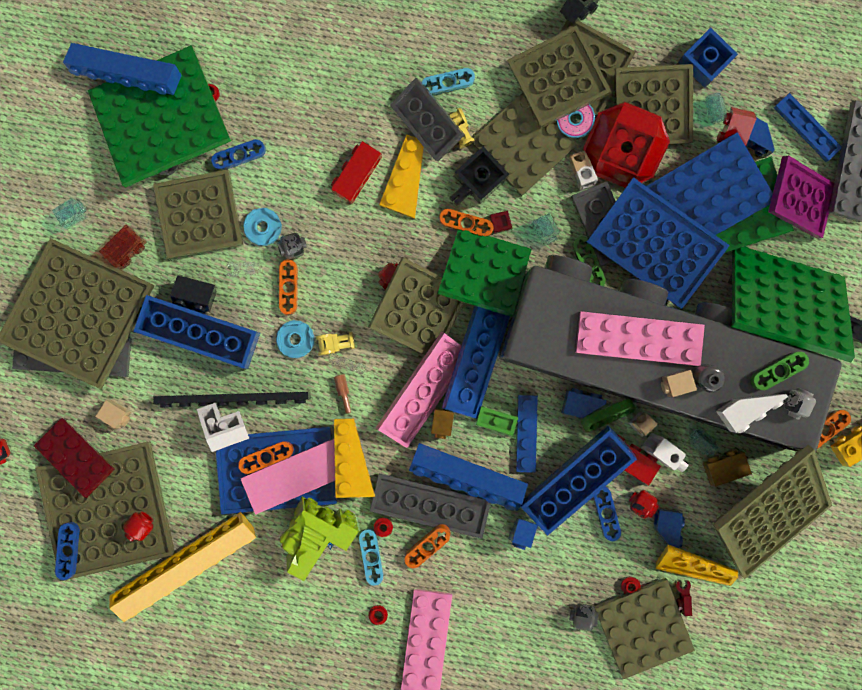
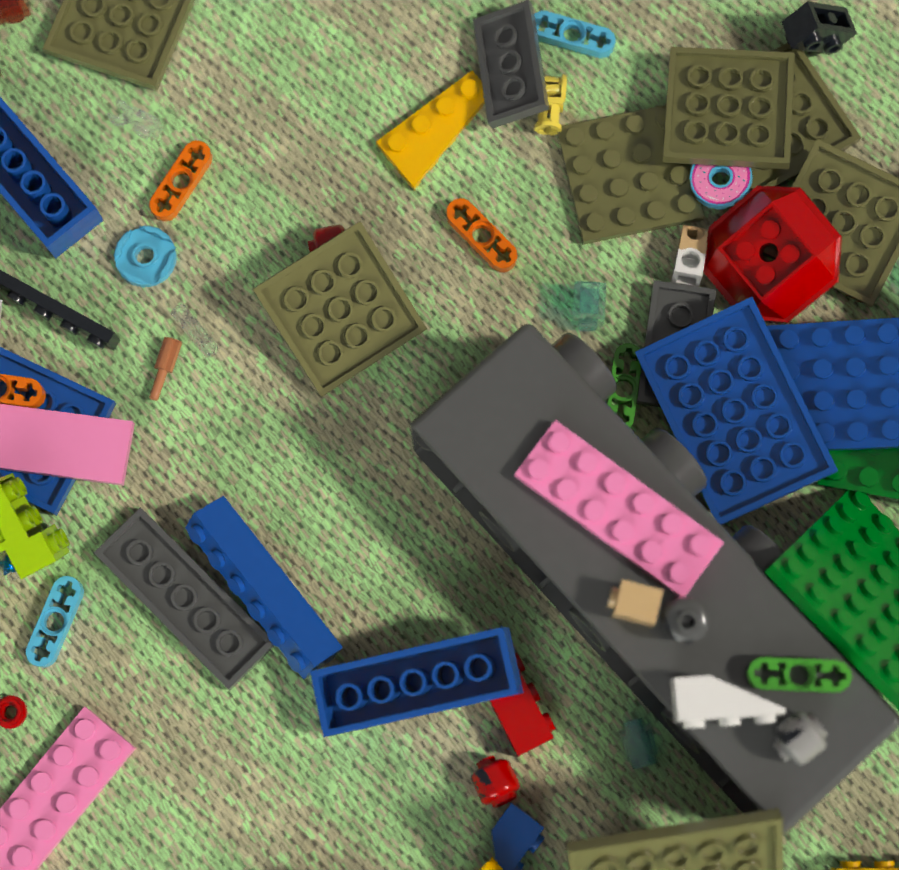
camera: 30 degrees right, 10 degrees down
(193, 294) = (46, 113): black brick -> none
(262, 215) = (198, 98): medium azure tile -> none
(291, 246) = (220, 127): dark grey head -> none
(333, 343) = (194, 290): light yellow connector -> none
(350, 464) = (103, 472): yellow wing -> none
(356, 172) = (371, 81): red brick -> none
(385, 521) = (107, 593): red plate -> none
(421, 392) = (277, 426): bright pink plate -> none
(425, 554) = (150, 641): orange beam -> none
(442, 423) = (273, 485): pearl gold brick -> none
(475, 362) = (373, 428): blue plate -> none
(477, 187) = (529, 196): black brick -> none
(485, 272) = (460, 307): green plate -> none
(497, 421) = (355, 533): bright green plate -> none
(501, 222) = (531, 261): dark red tile -> none
(522, 533) = (289, 712): blue slope -> none
(526, 433) = (387, 578): blue plate -> none
(581, 405) = (490, 581): blue slope -> none
(605, 528) = (448, 743): blue beam -> none
(608, 415) = (537, 621): bright green beam -> none
(642, 423) = (563, 662): tan leg -> none
(665, 452) = (566, 712): white torso -> none
(727, 468) = (651, 802): pearl gold brick -> none
(840, 425) = (859, 826): orange beam -> none

